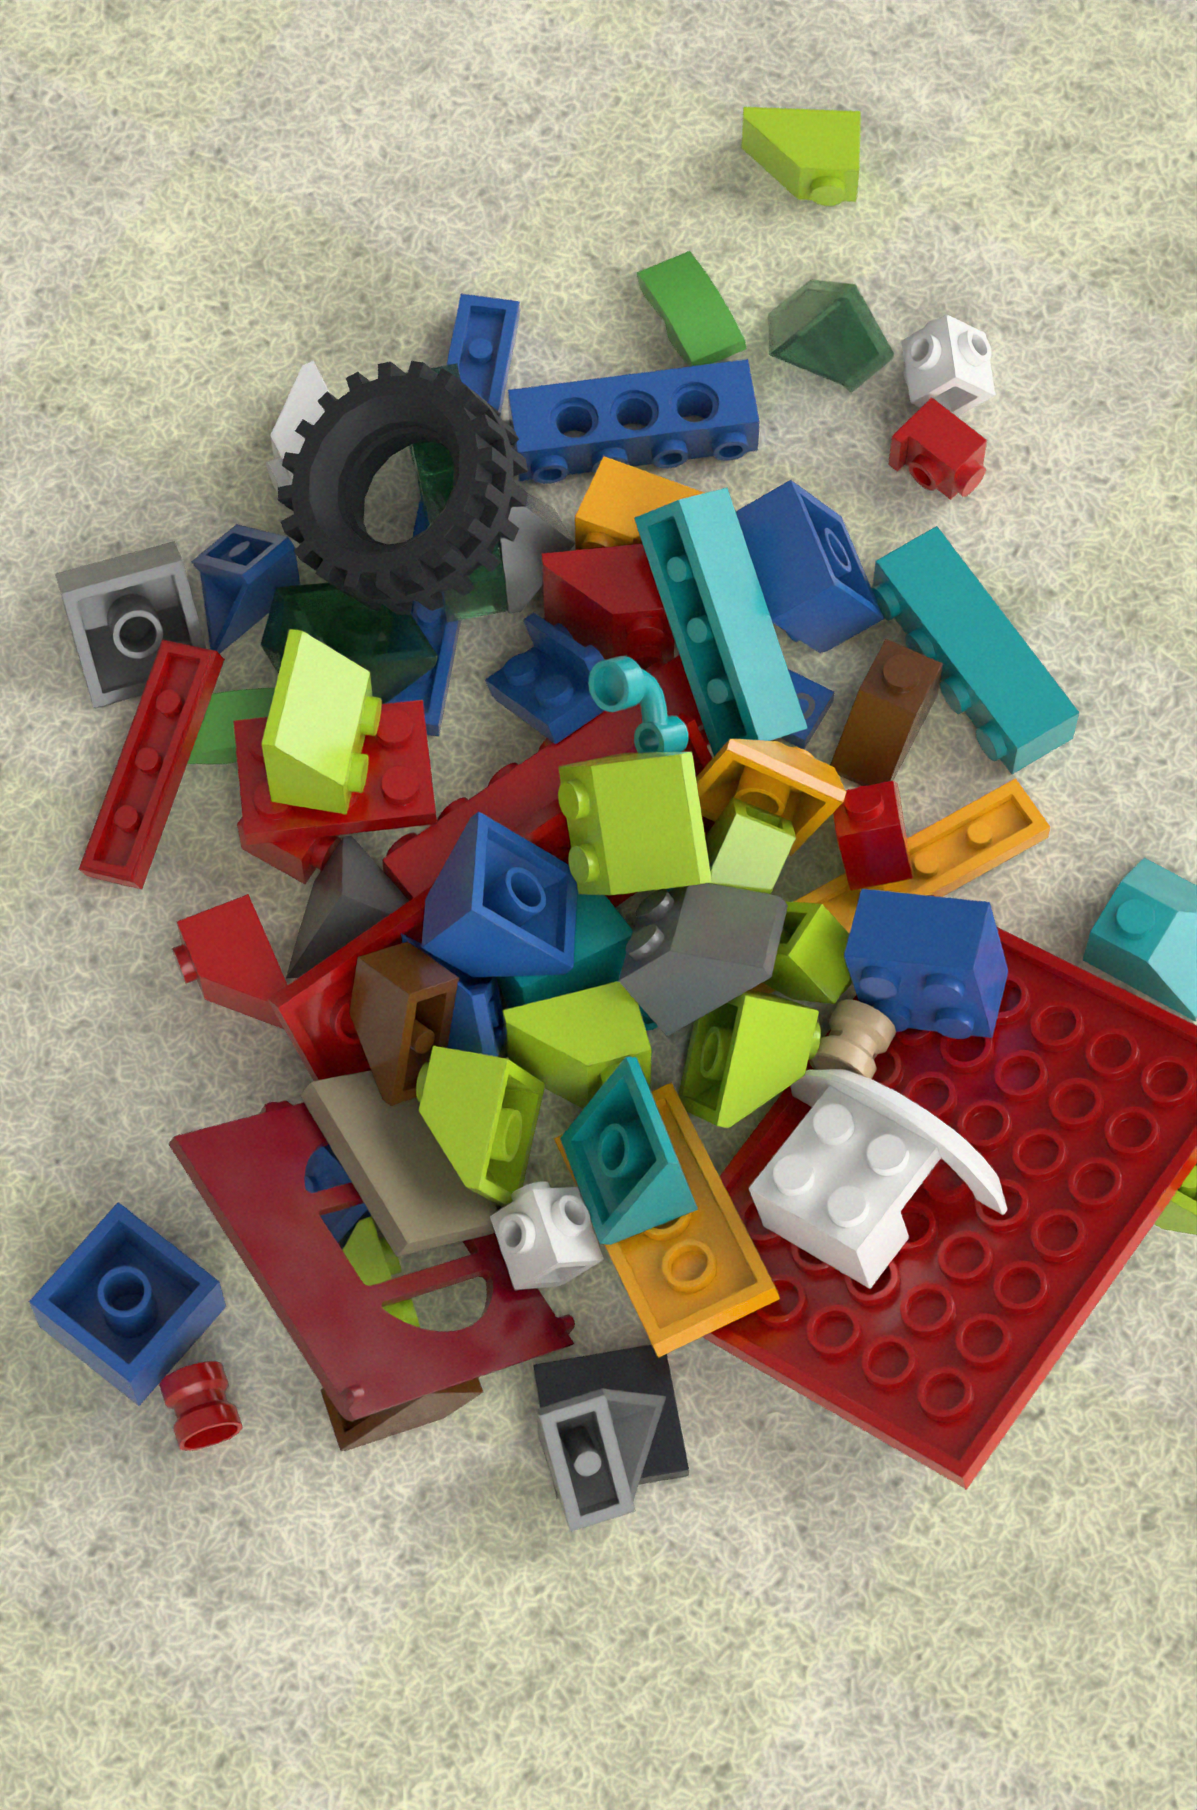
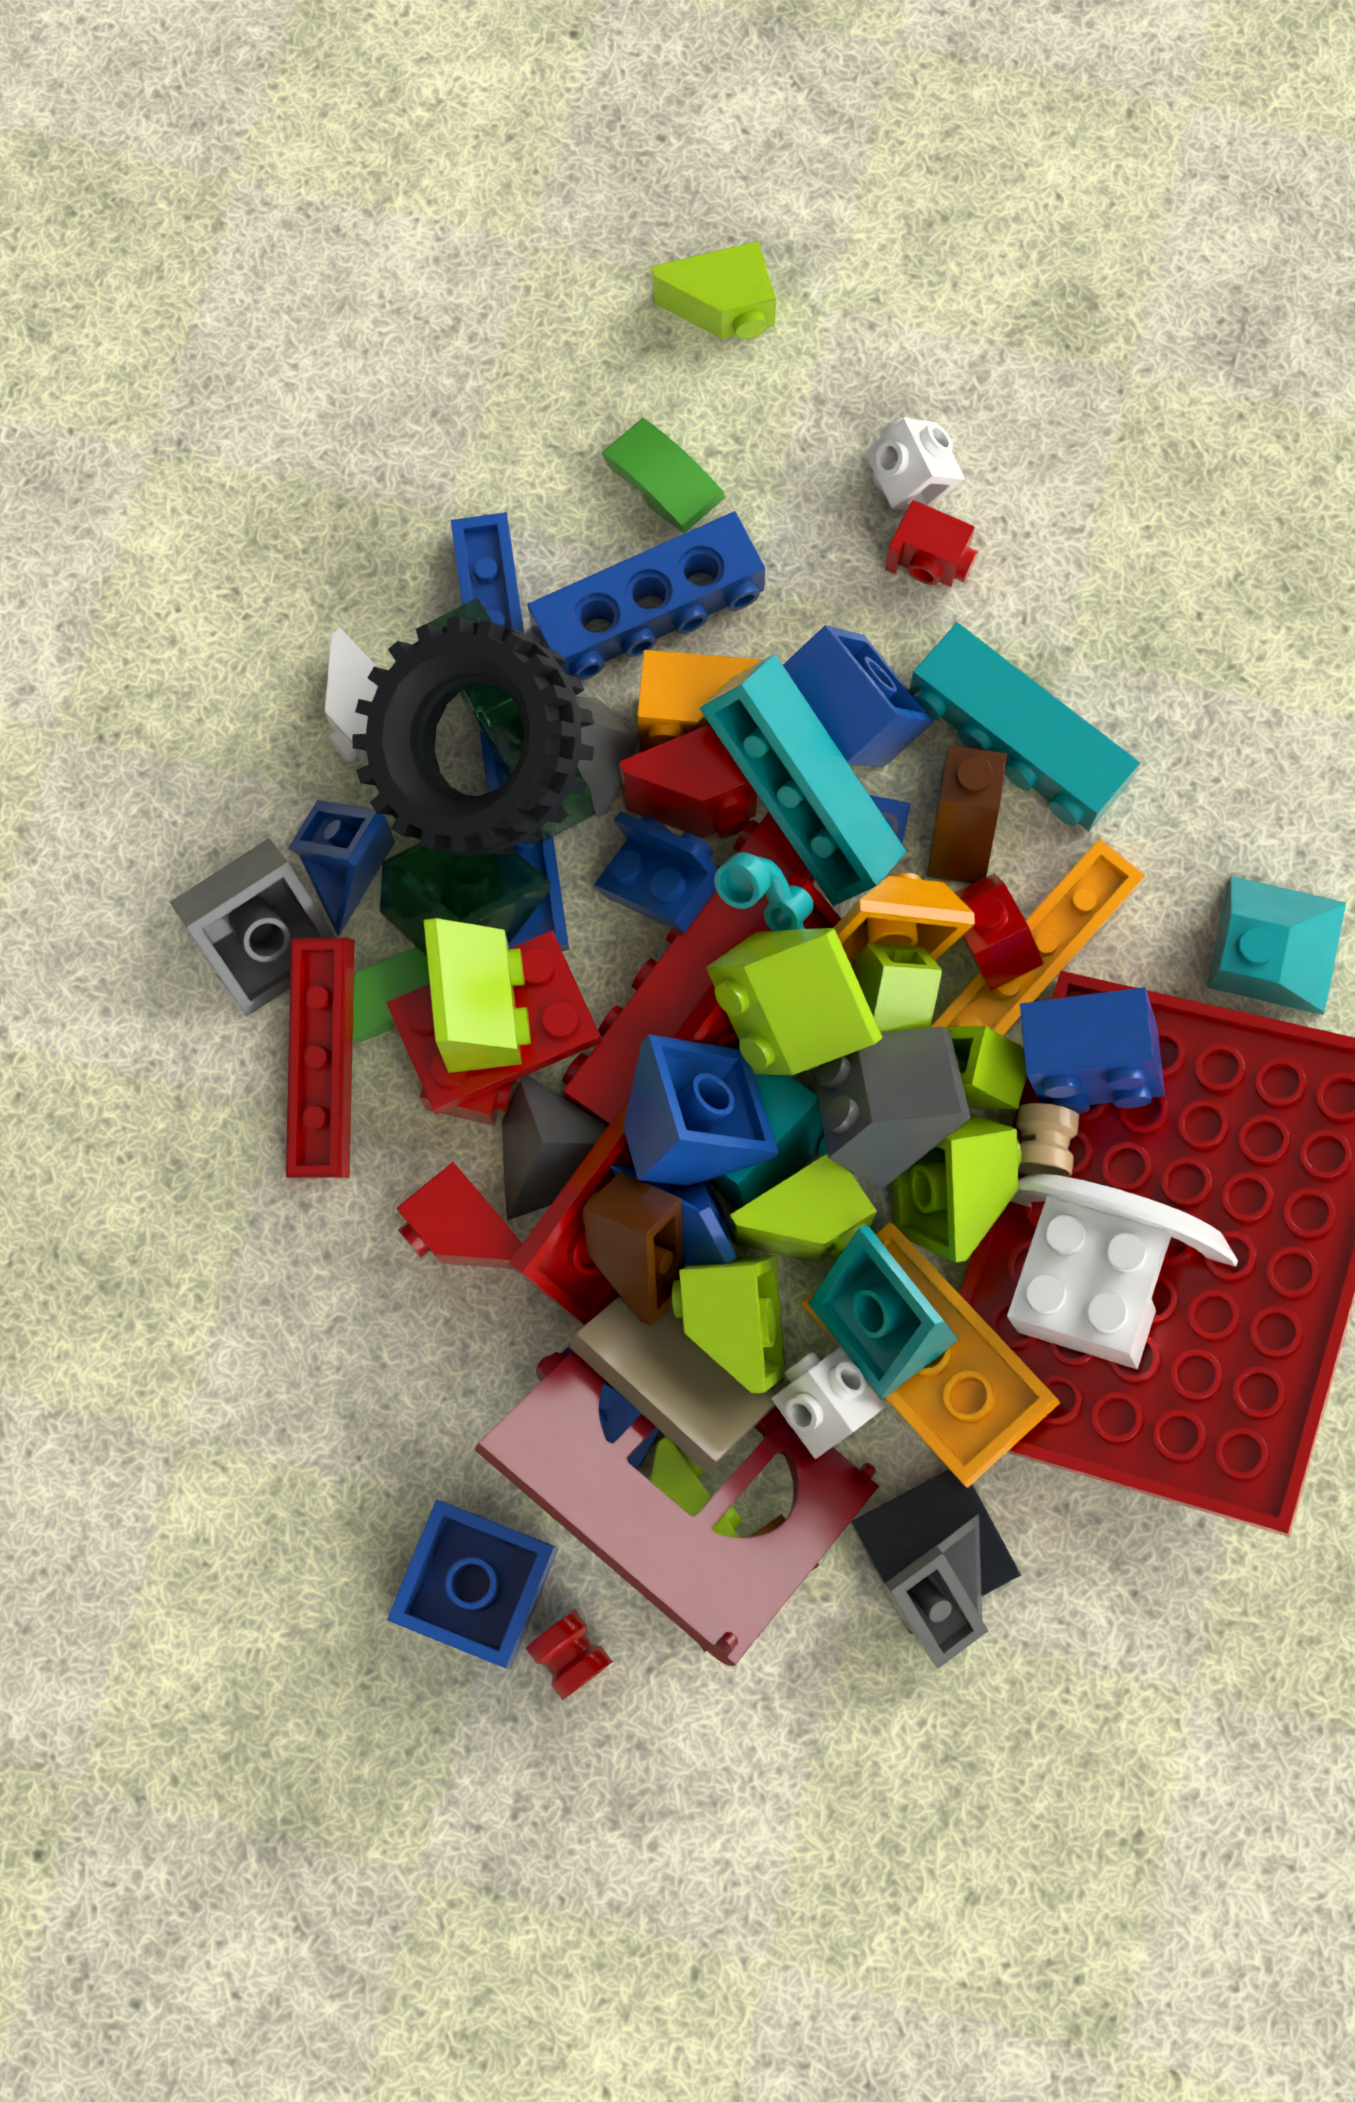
camera: 15 degrees left, 10 degrees up
(829, 333) = (793, 461): clear green slope -> none

